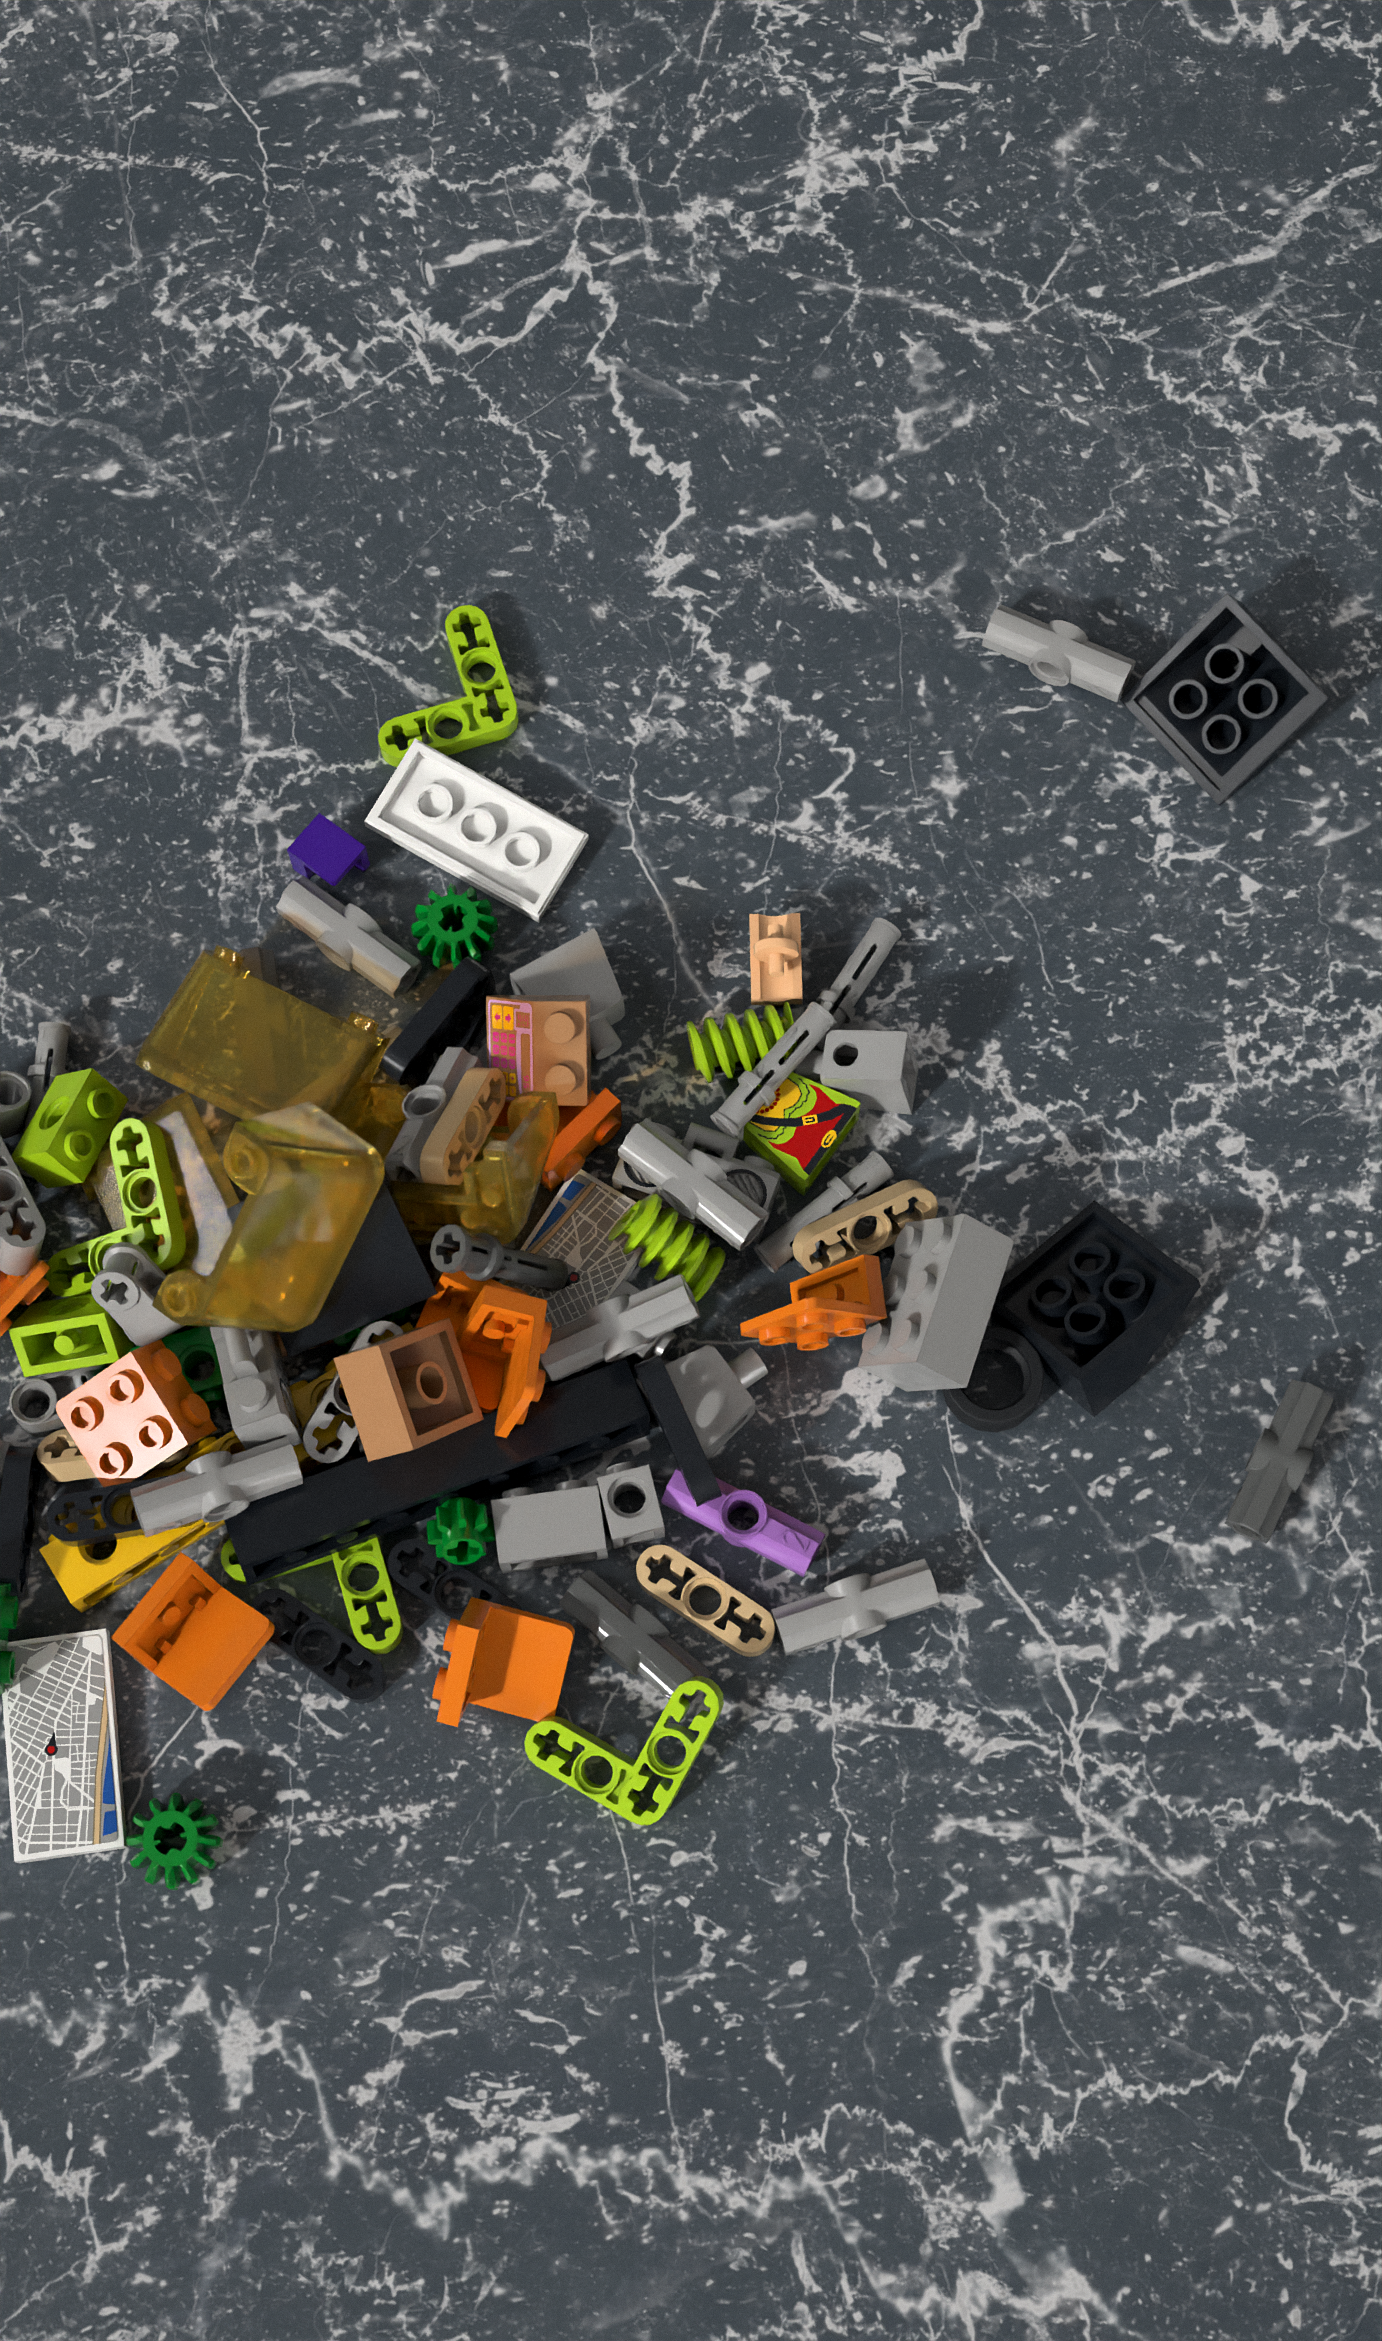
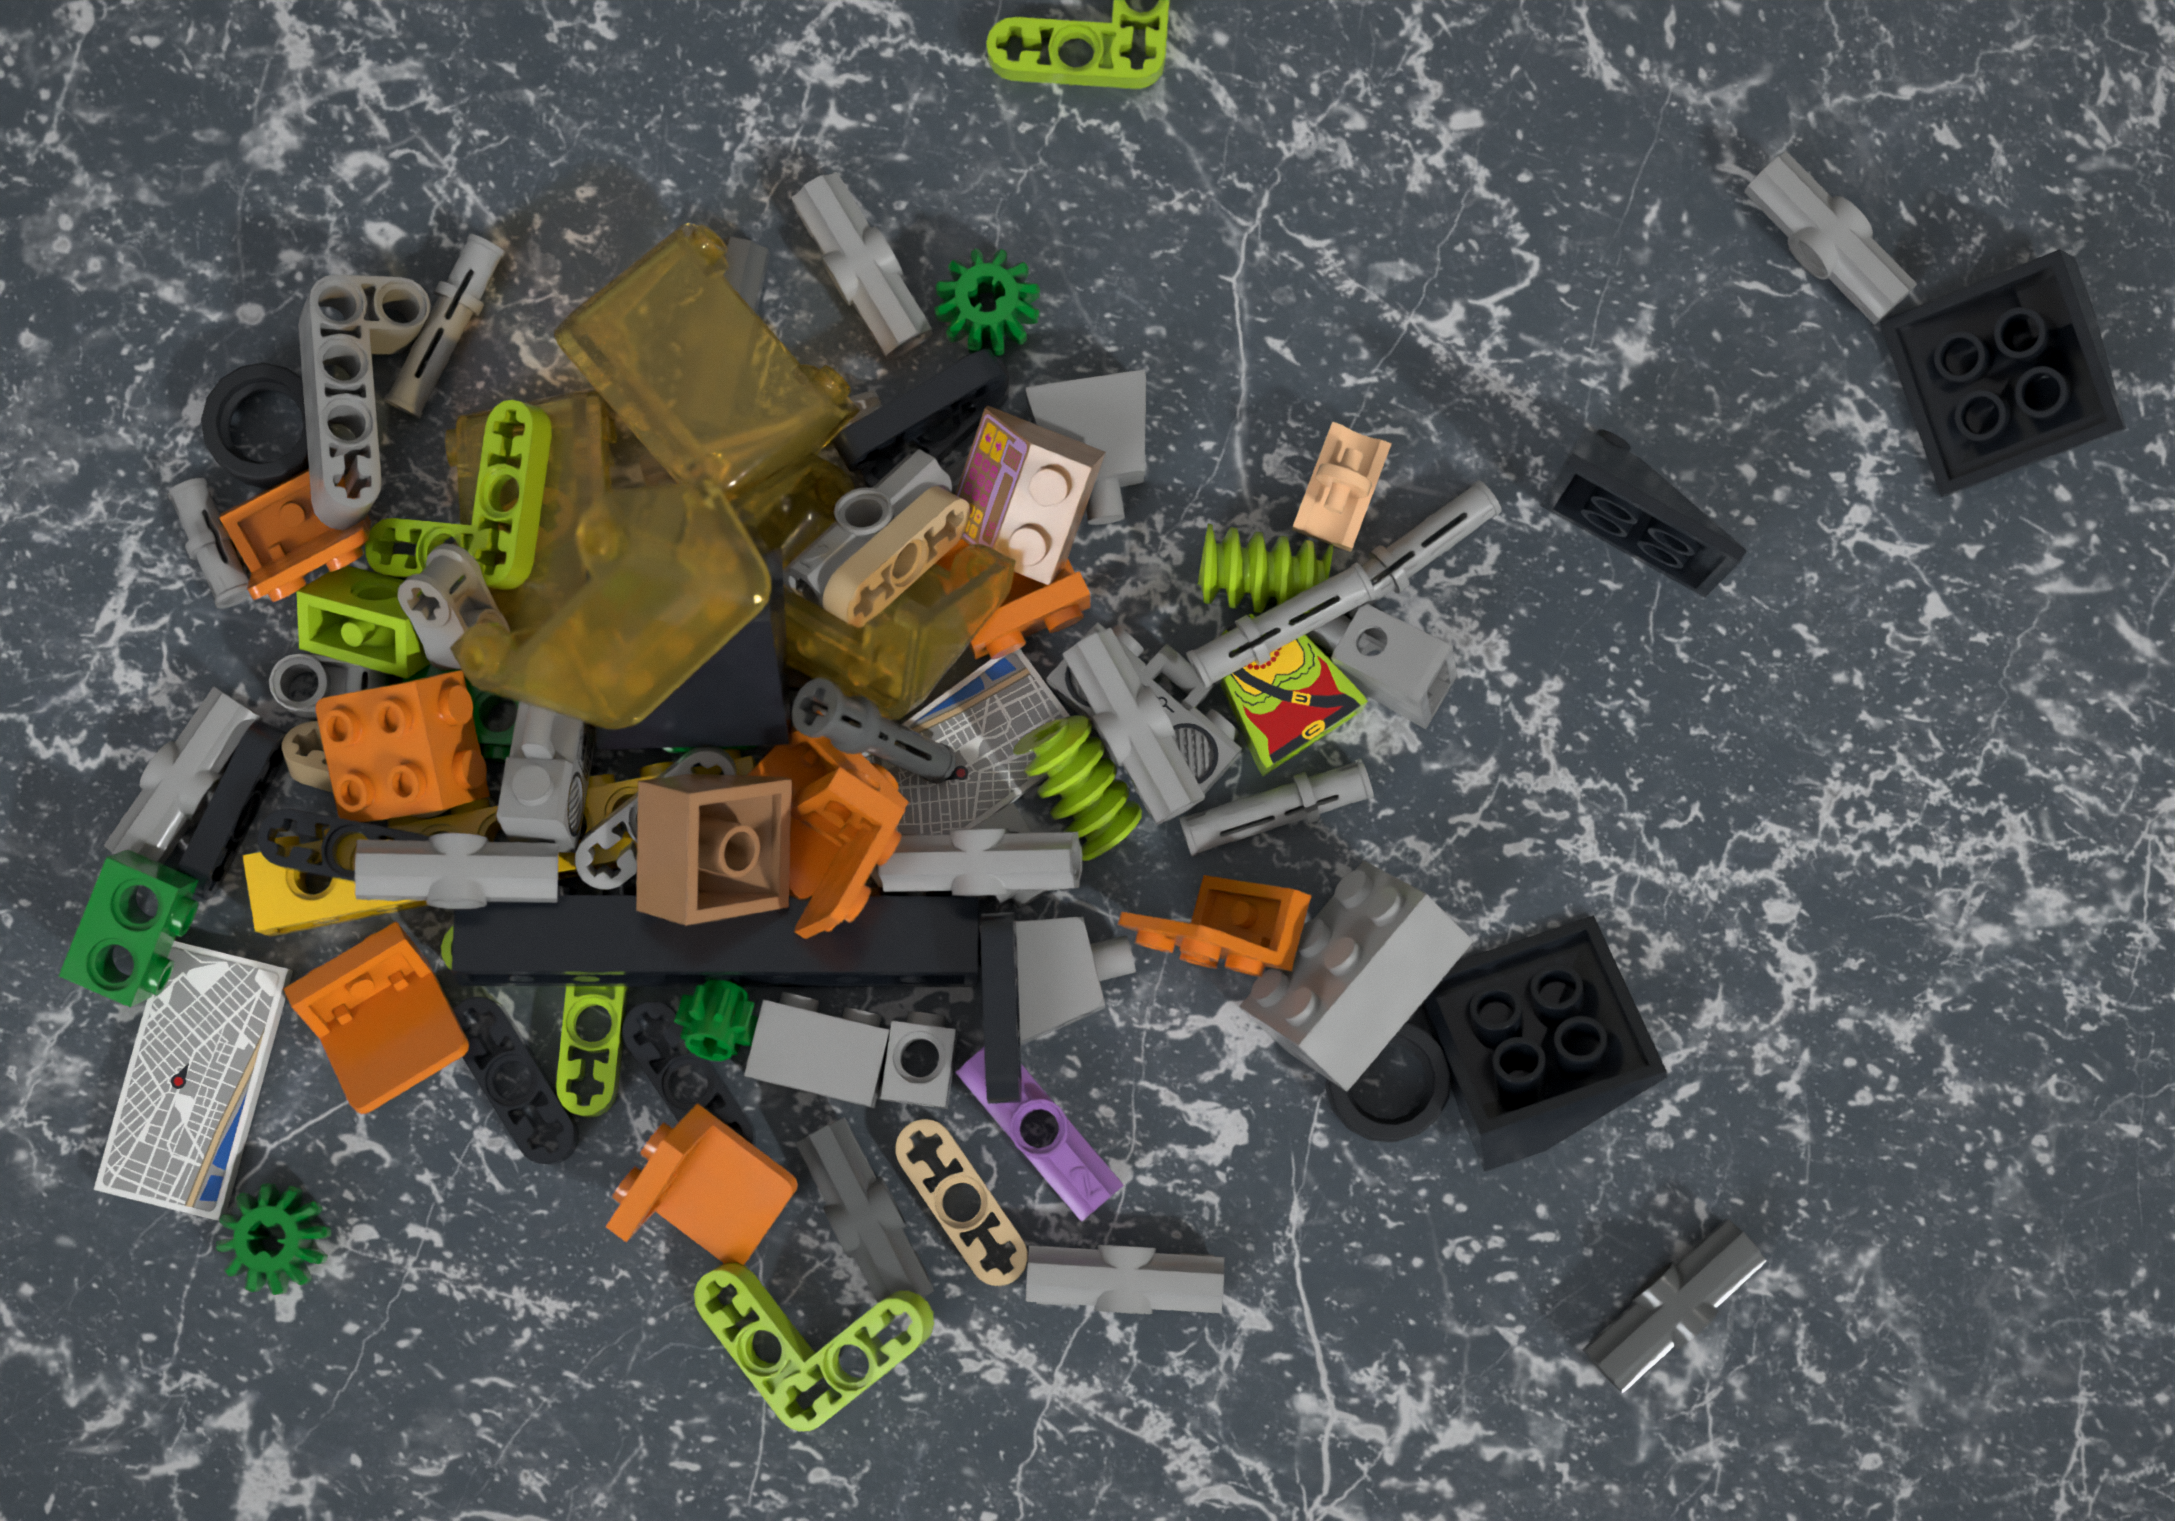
camera: 20 degrees right, 10 degrees up
(69, 1128) = (455, 376): lime brick -> none
(326, 851) = (874, 154): dark purple panel -> none
(476, 830) = (1059, 192): white tile -> none
(845, 1219) = (1295, 829): tan beam -> none
(1008, 894) = (1640, 513): none -> black slope

